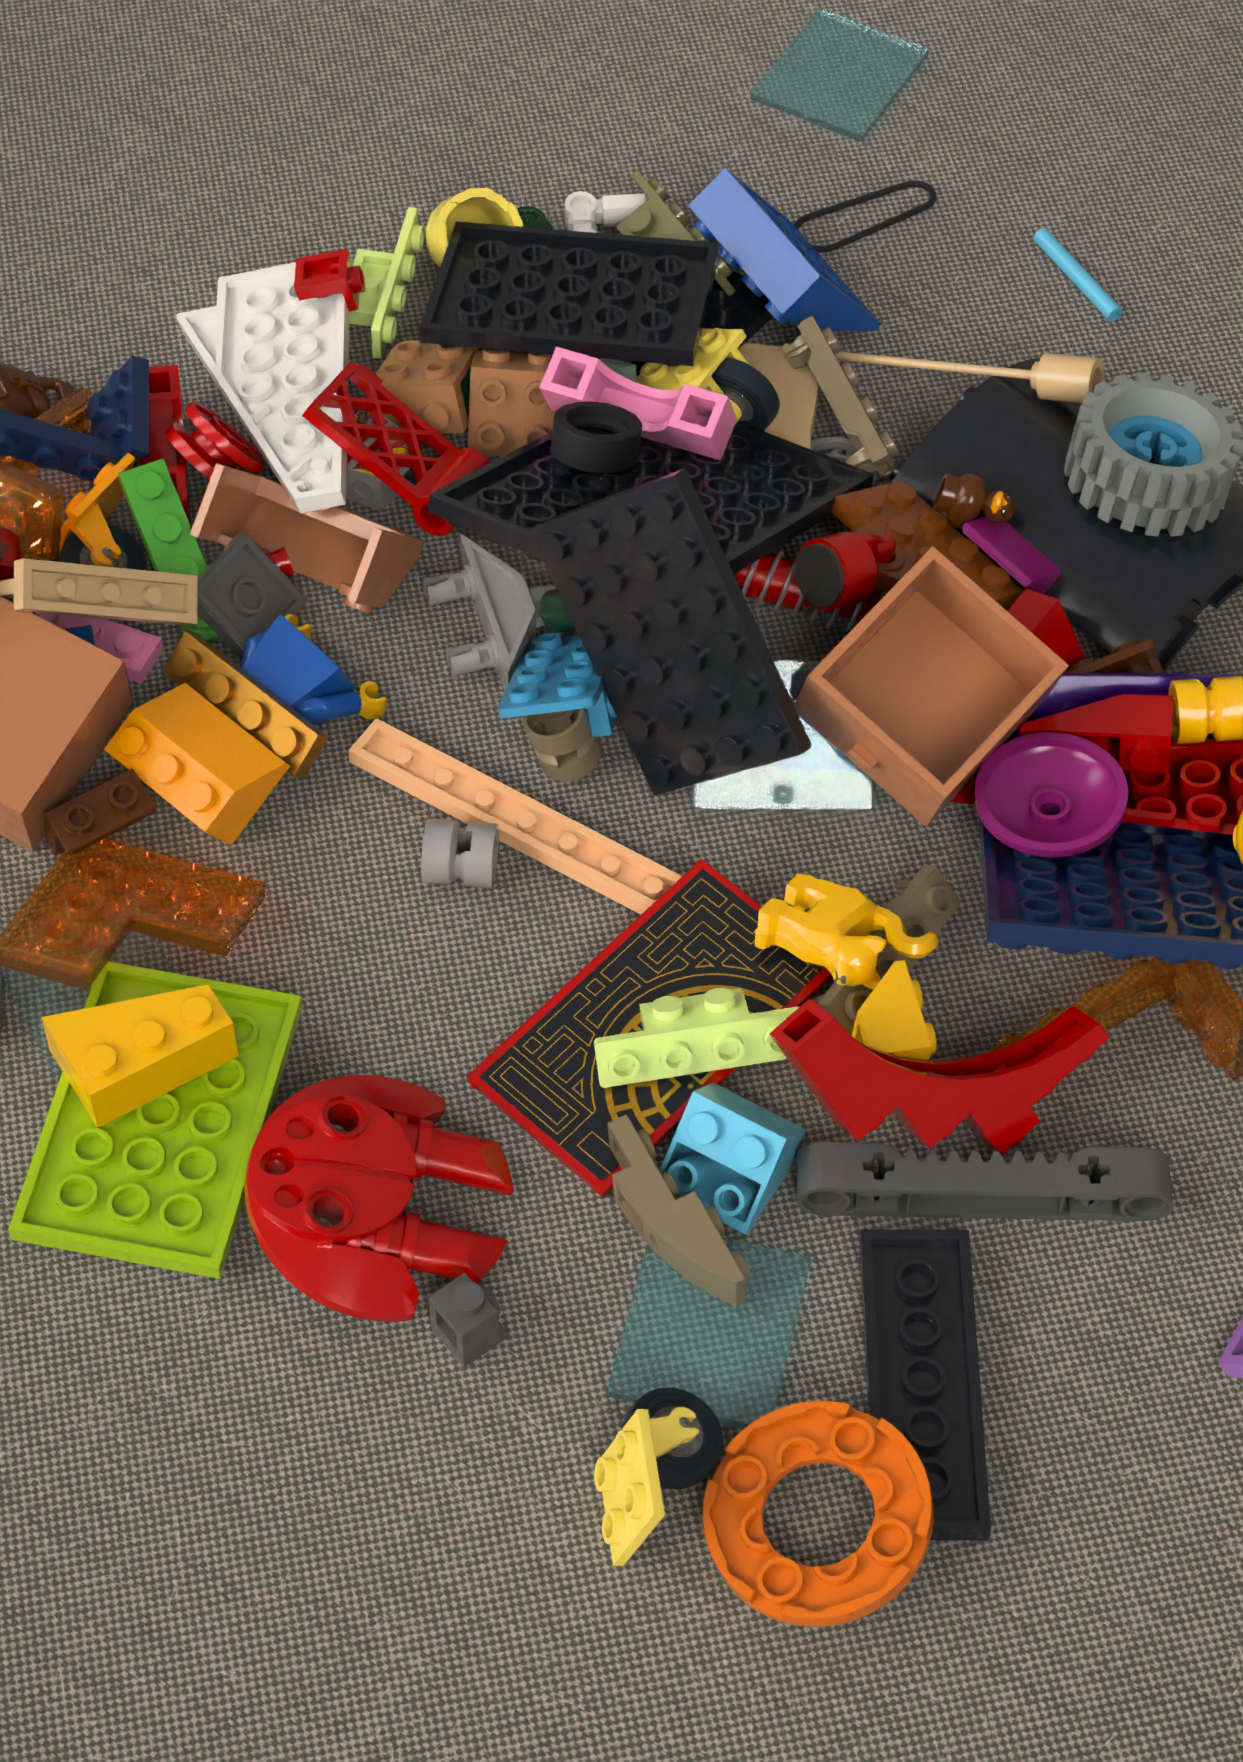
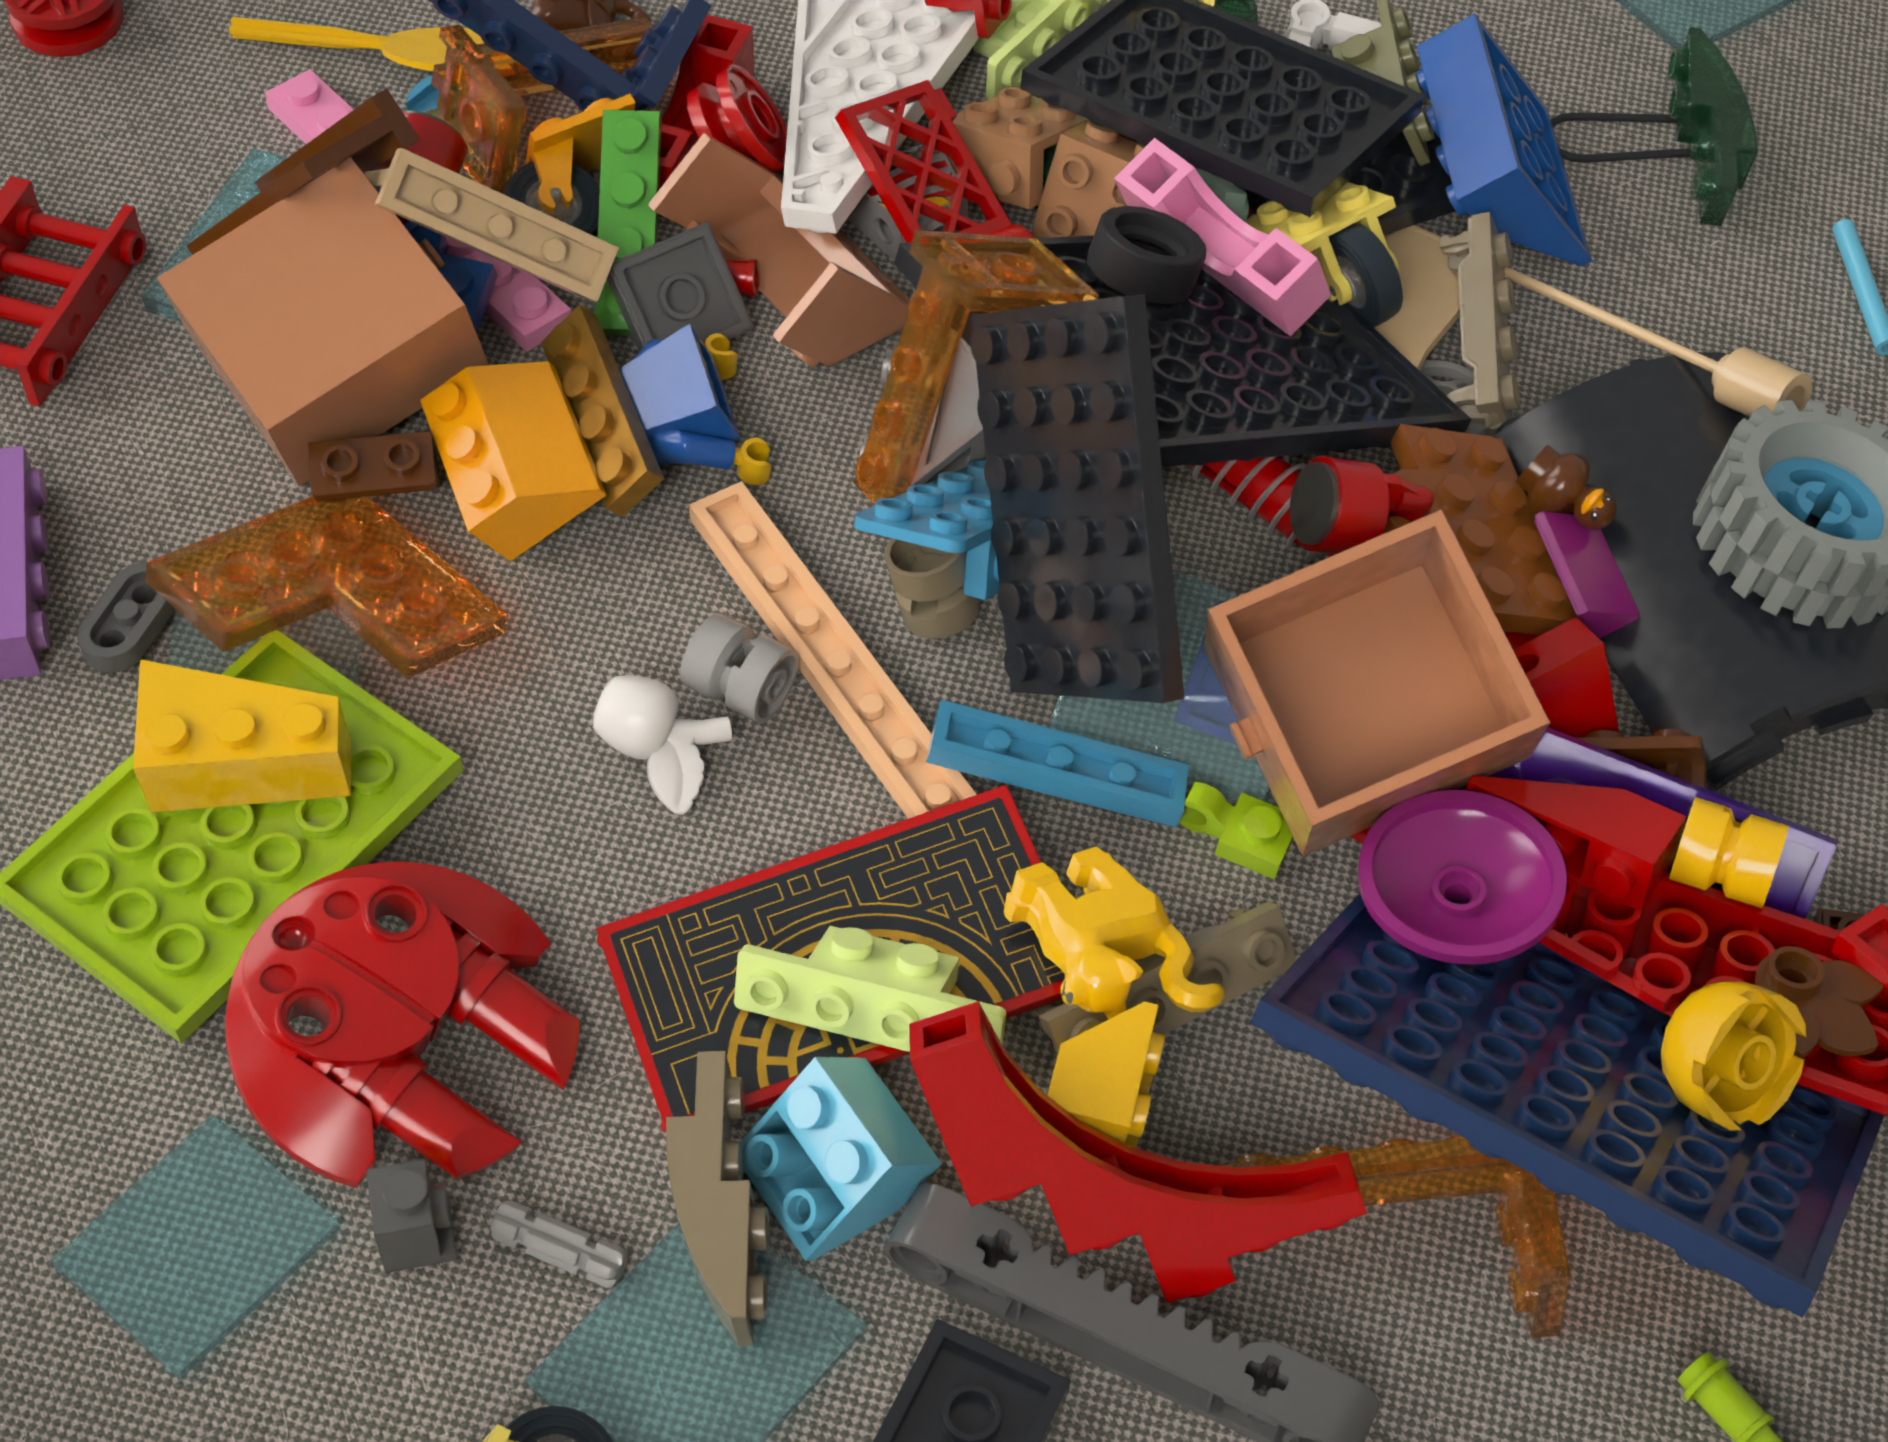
camera: 25 degrees right, 0 degrees up
(320, 1407) = (195, 1246): none -> clear light blue piece
(413, 920) = (640, 722): none -> white piece
(499, 500) = (957, 277): none -> clear orange bracket
(575, 1294) = (559, 1244): none -> light grey axle
(724, 830) = (1058, 763): none -> dark azure plate
(874, 824) = (1248, 834): none -> lime plate
(914, 183) = (1715, 120): none -> clear green slope

